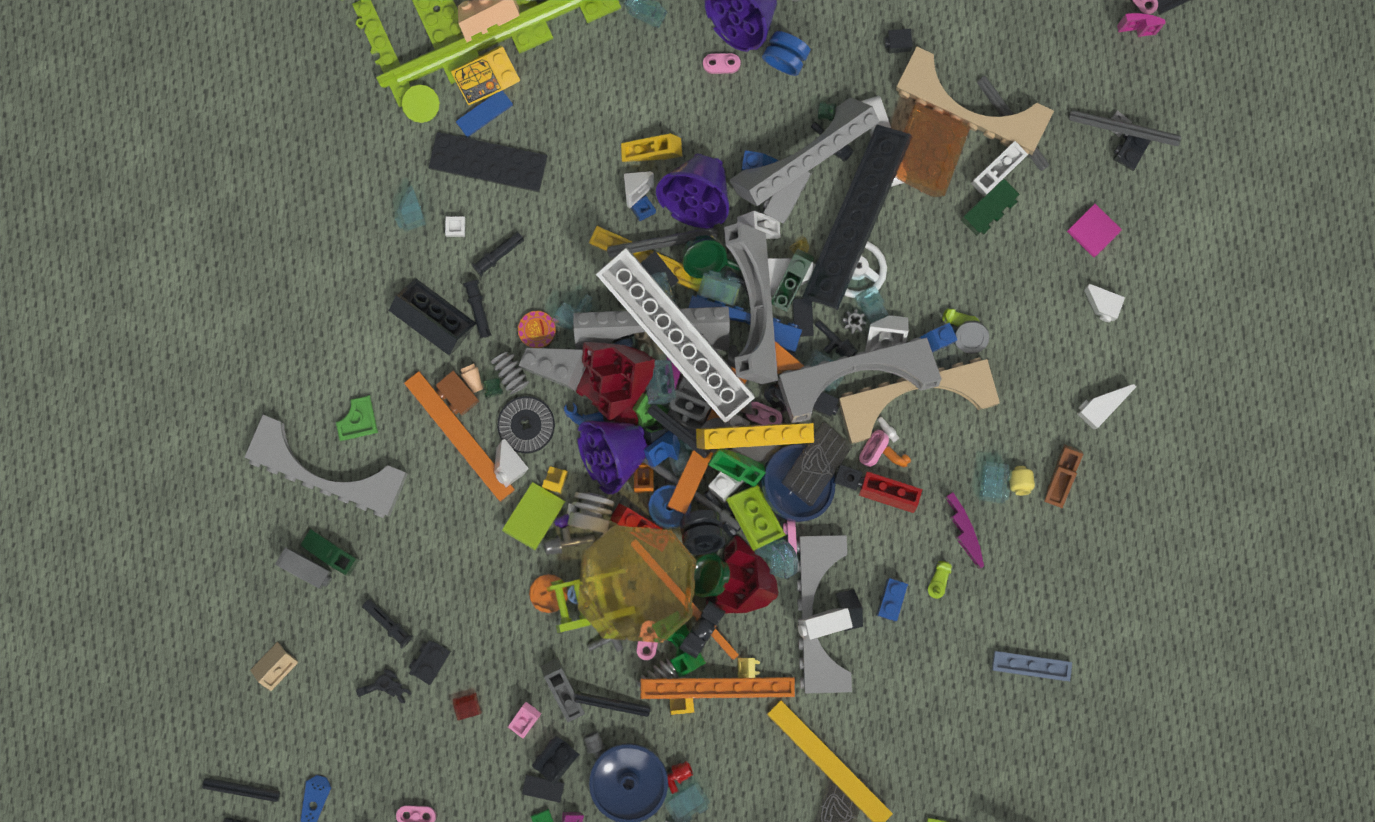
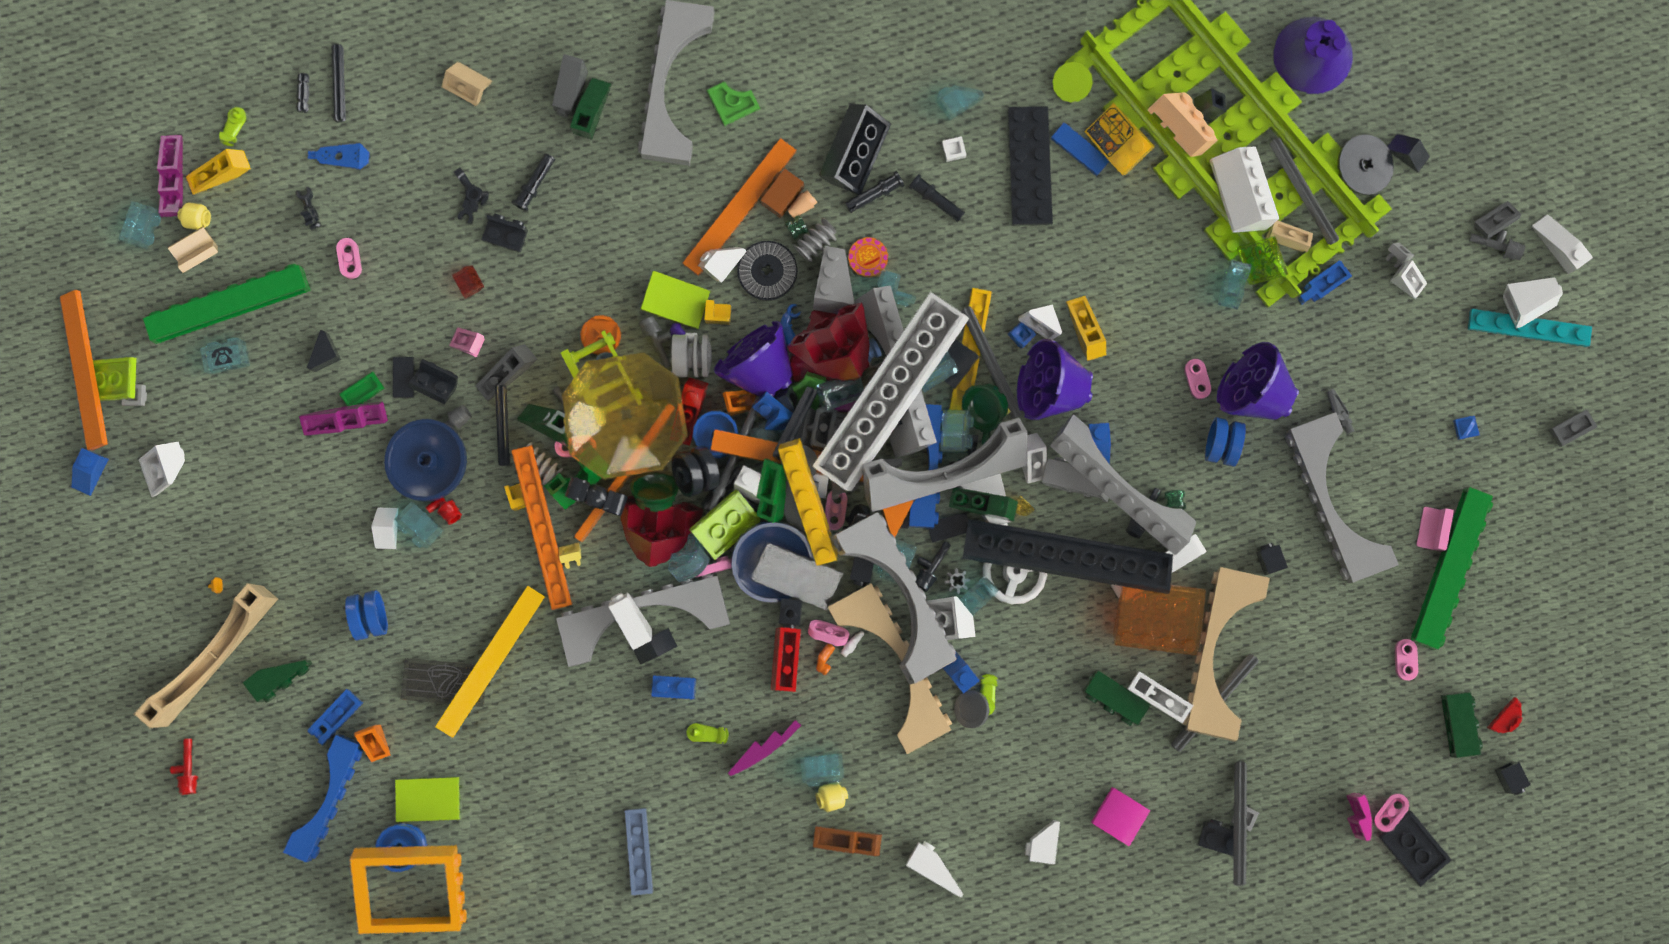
camera: 80 degrees right, 0 degrees up
(620, 660) = (546, 421): none -> dark green slope

